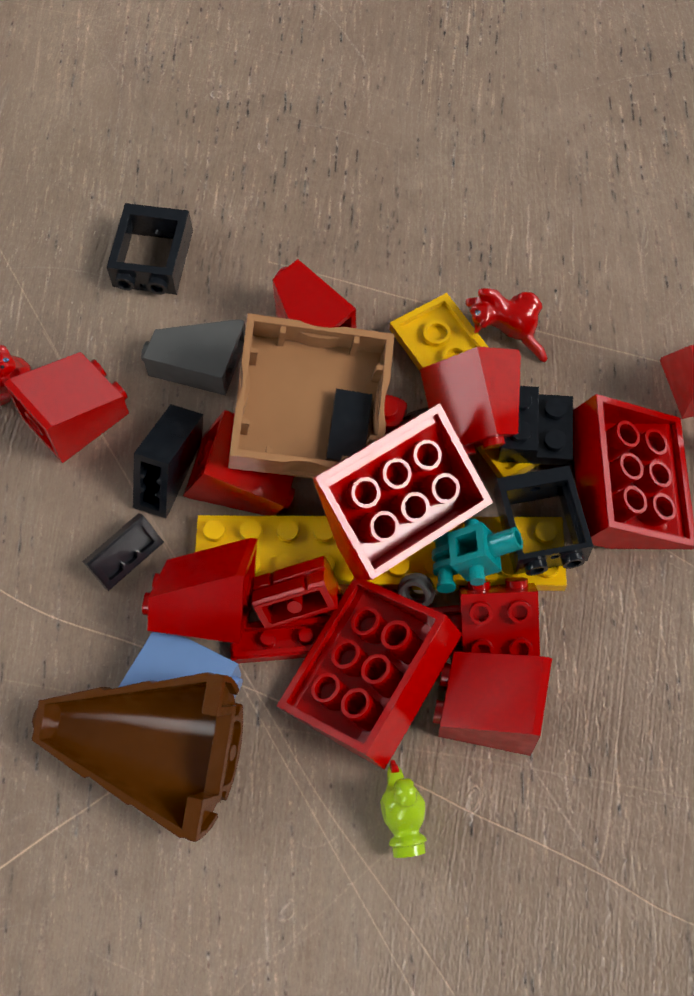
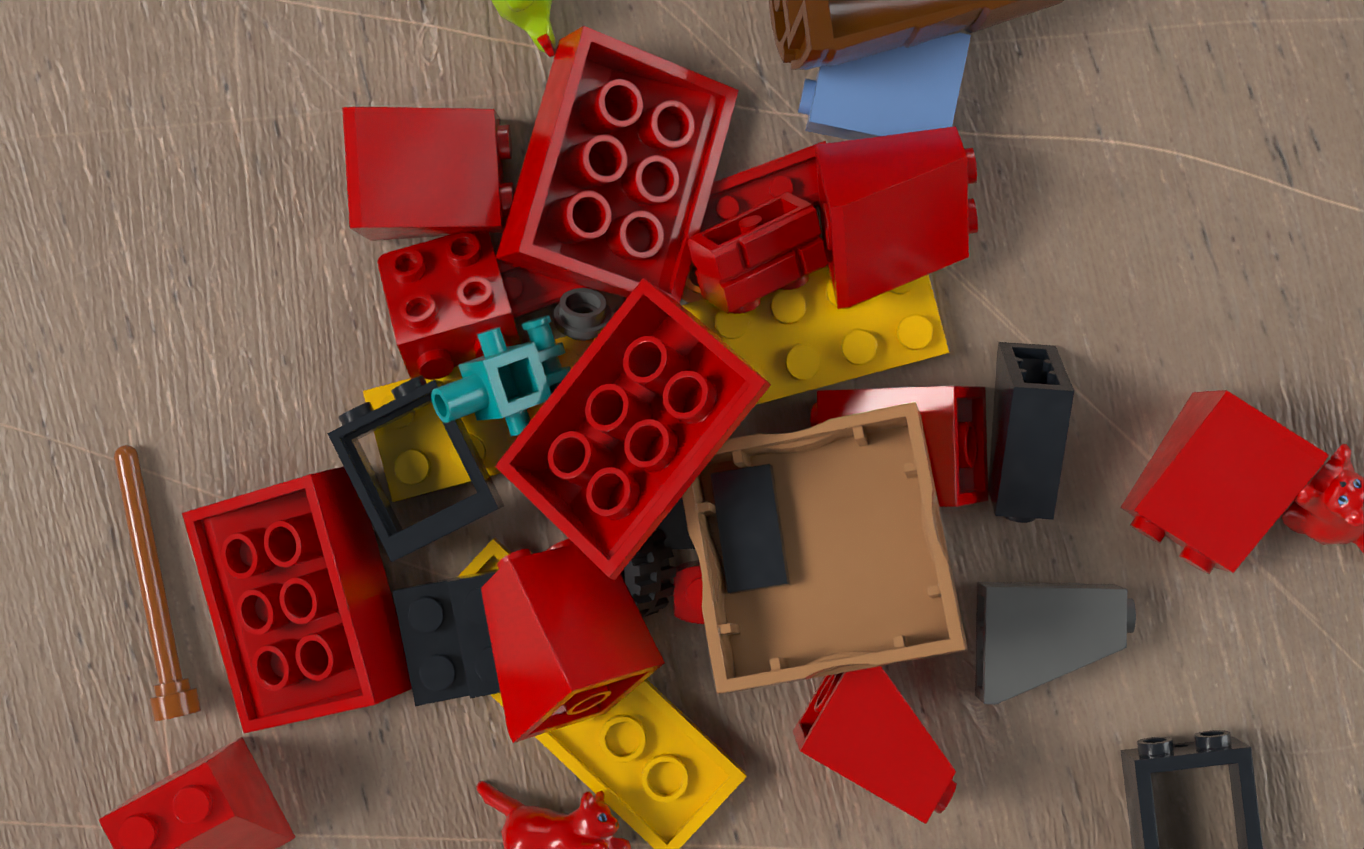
camera: 160 degrees right, 25 degrees up
(123, 551) = (1041, 260): black plate -> none

